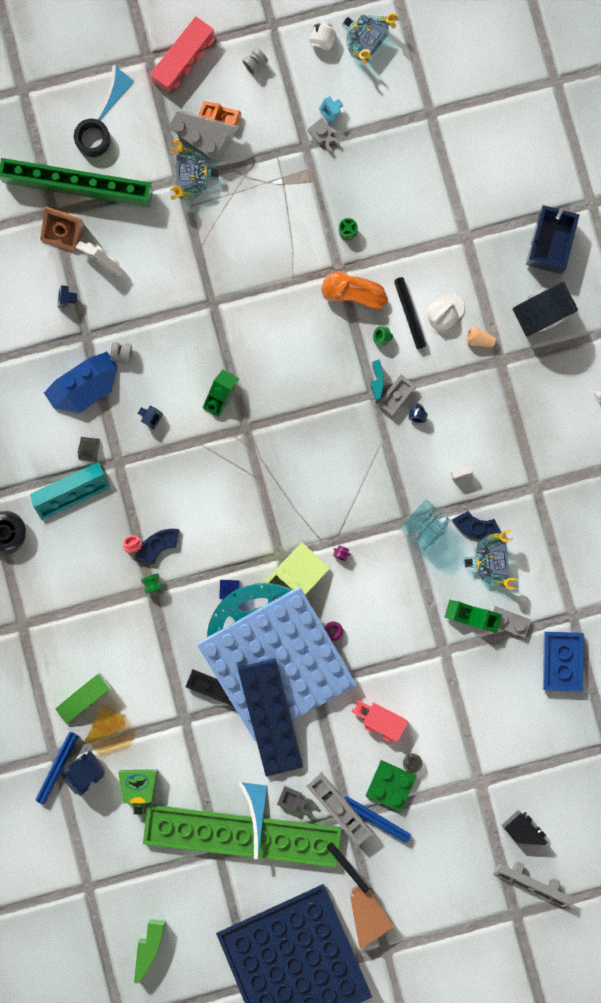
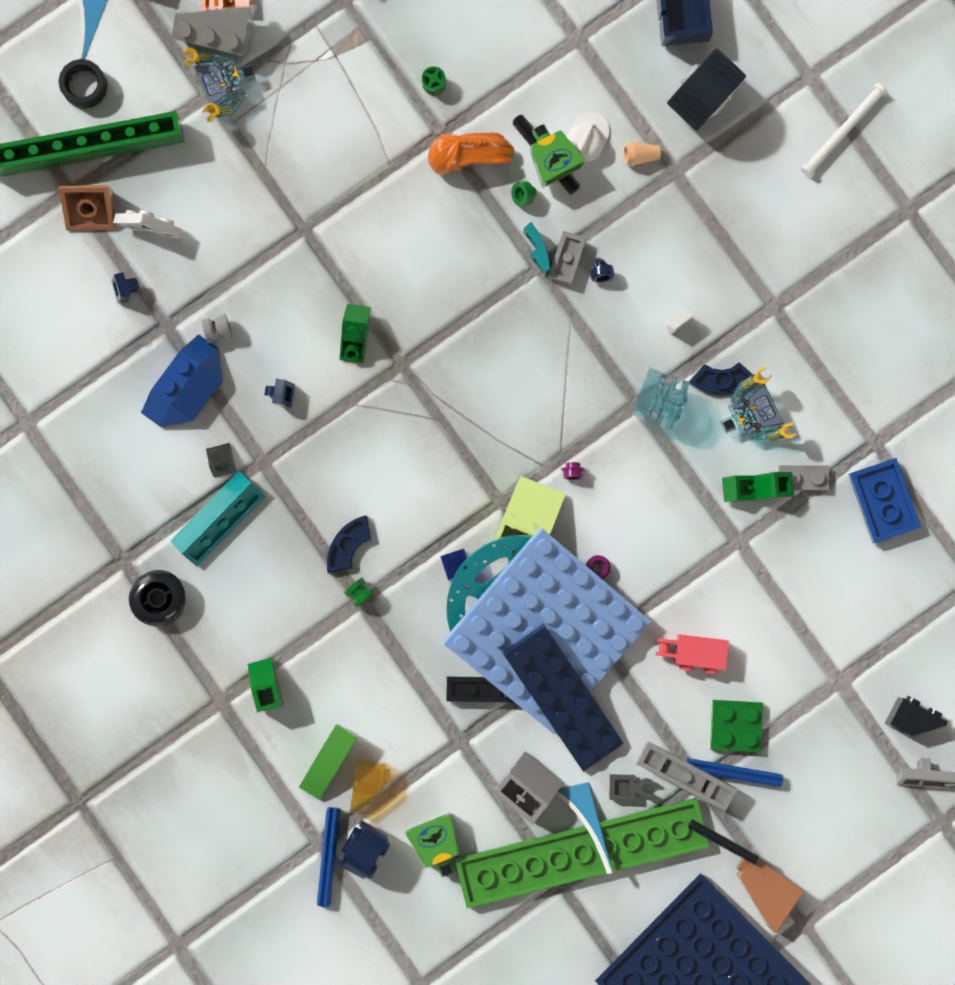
camera: 25 degrees left, 0 degrees up
(57, 625) = (264, 685): none -> green slope
(132, 544) = (317, 554): coral plate -> none
(220, 773) = (528, 787): none -> light grey slope
(412, 763) = (752, 689): clear smoke plate -> none
(414, 316) = (554, 156): none -> bright green torso

